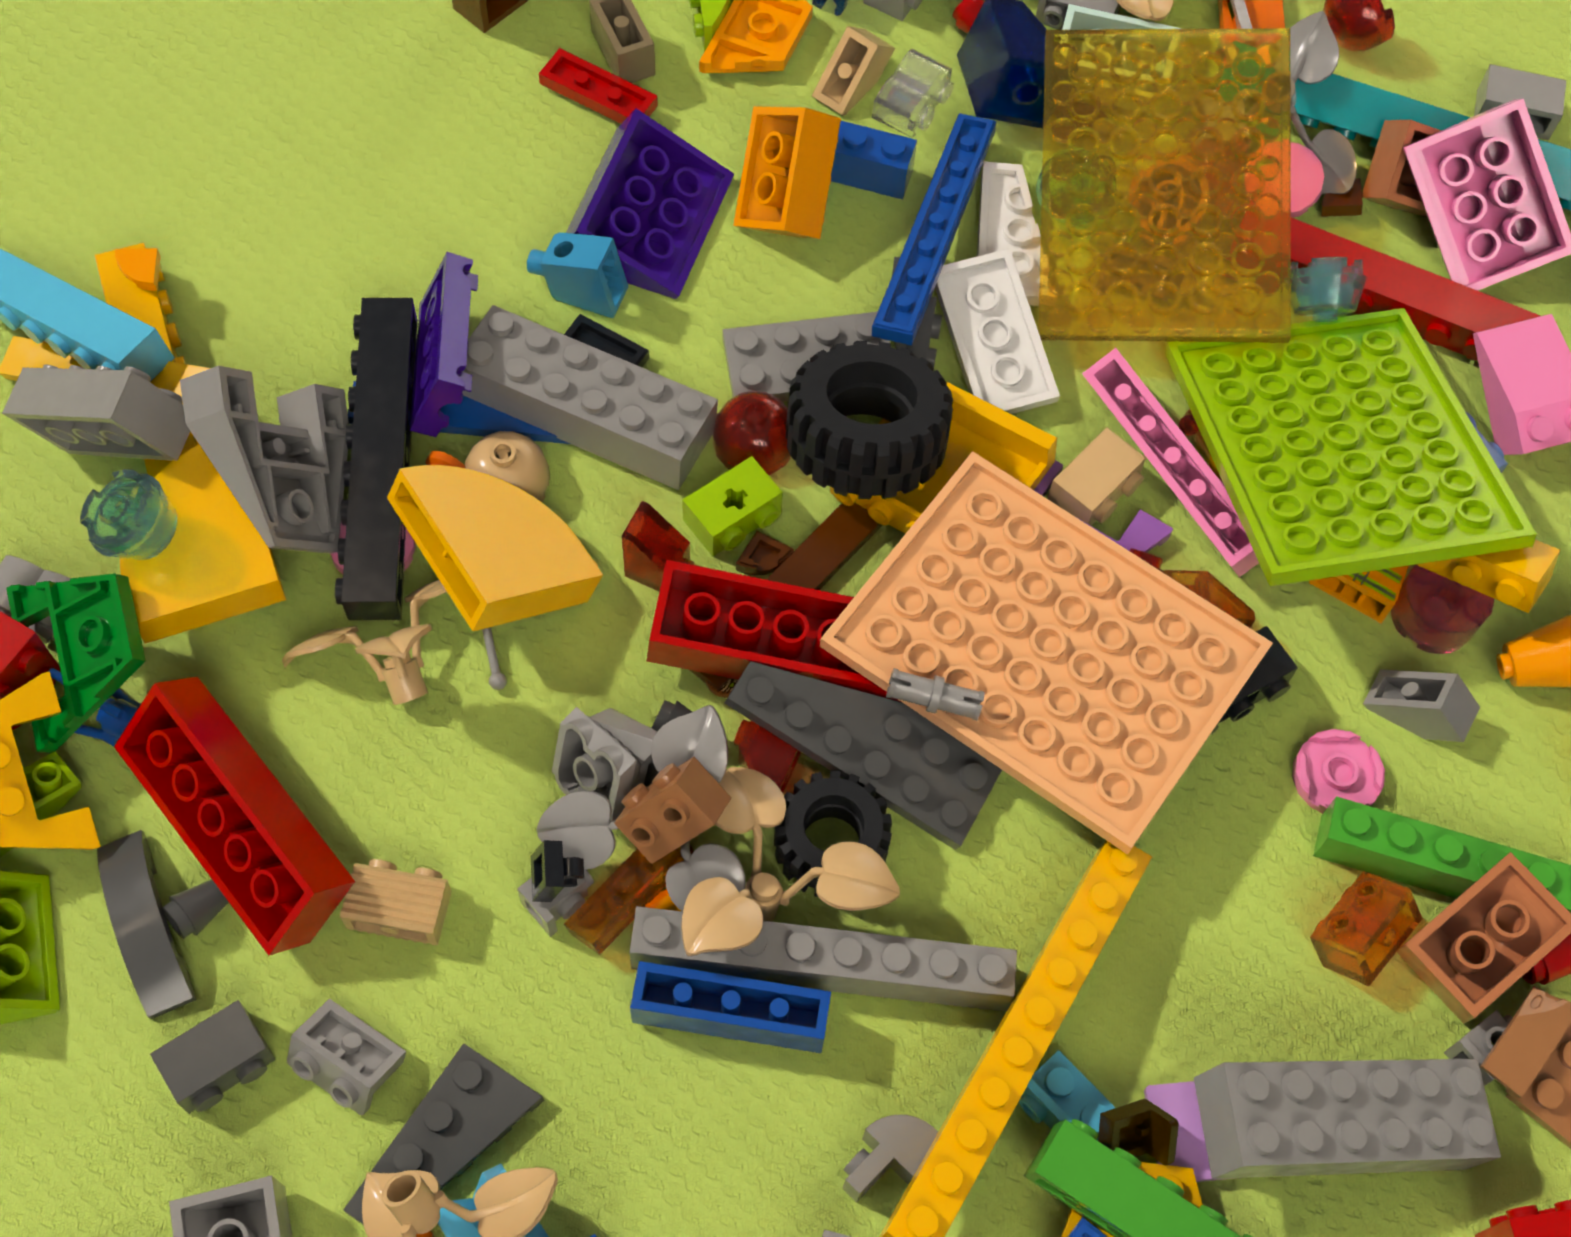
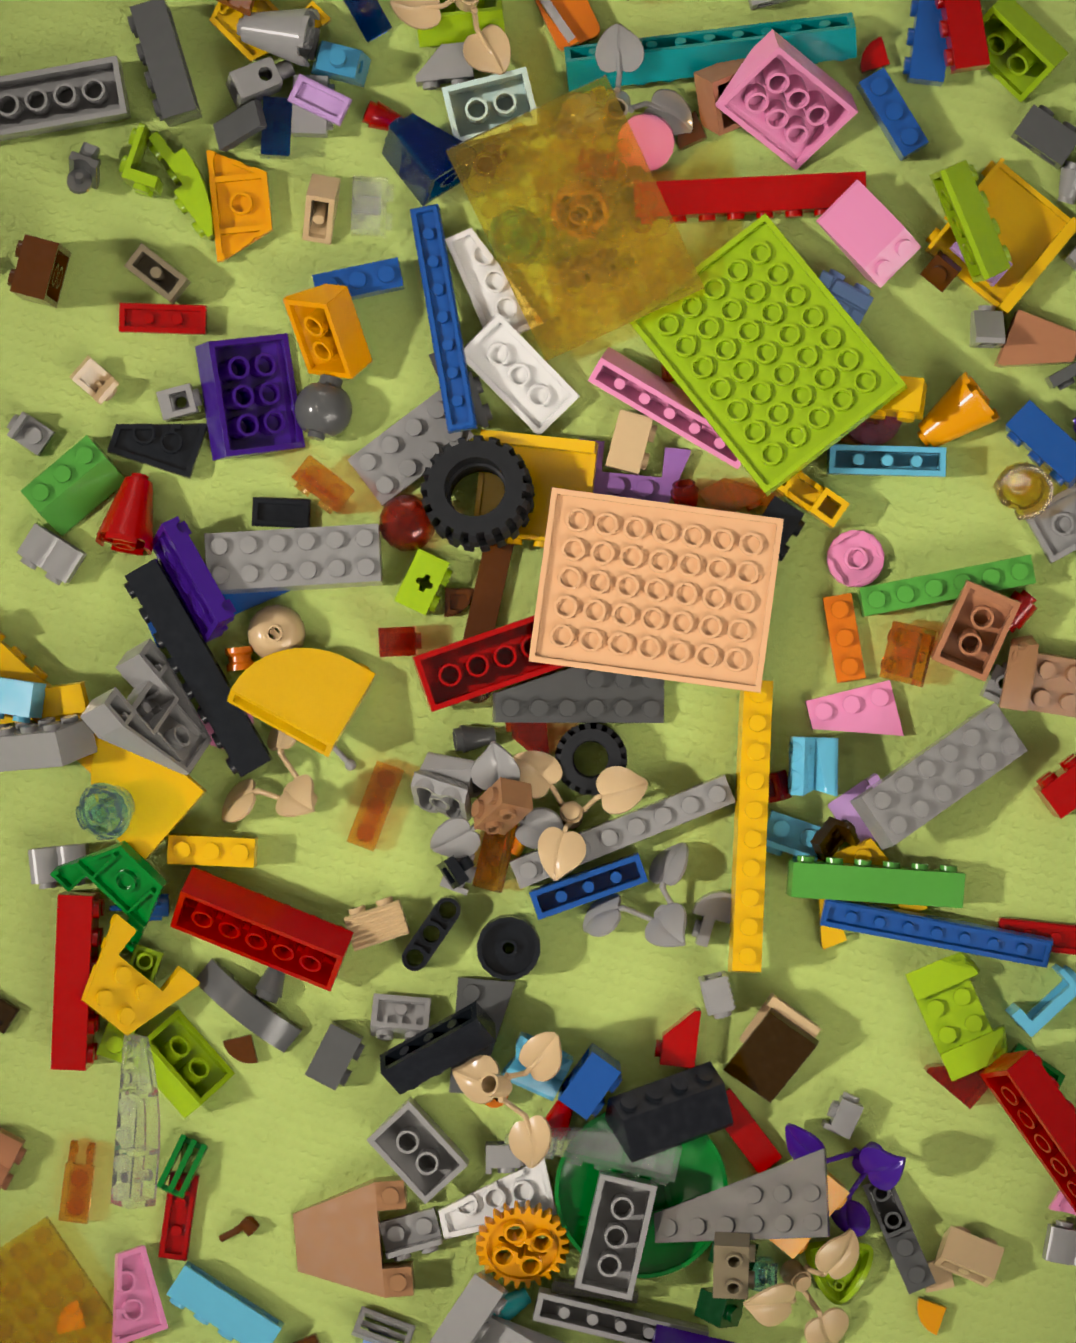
camera: 25 degrees left, 25 degrees up
(94, 978) = (242, 1048): none -> reddish brown tile
(259, 691) = (212, 850): none -> yellow arch
(294, 251) = (51, 554): none -> light grey brick
(362, 124) = (29, 432): none -> light grey bracket
(367, 1122) = (438, 1048): none -> black brick
(374, 195) = (74, 485): none -> bright green slope
(409, 255) = (130, 517): none -> red cone
(440, 956) = (424, 945): none -> black beam
(476, 107) = (95, 380): none -> tan bracket
(496, 746) = (375, 805): none -> clear orange plate
(505, 212) = (162, 446): none -> black wing
(557, 1004) = (514, 930): none -> black wheel
(558, 172) = (168, 401): none -> light grey brick
(582, 272) = (246, 472): dark azure torso -> none
(673, 333) = (324, 484): none -> clear orange bracket
(728, 257) = (323, 408): none -> dark grey brick
(818, 1107) = (669, 920): none -> light grey plant
(935, 694) = (610, 665): light grey pin -> none
(1082, 1023) = (778, 786): none -> dark red slope
(1155, 1009) = (813, 765): none -> medium azure piece
(1258, 977) = (857, 710): none -> bright pink wing
(1275, 868) = (844, 638): none -> orange plate
(1324, 673) = (814, 498): none -> yellow arch
(1327, 288) = (710, 236): clear light blue cone -> none
(1410, 642) = (886, 460): none -> medium azure brick
(1424, 703) = (886, 491): light grey slope -> none

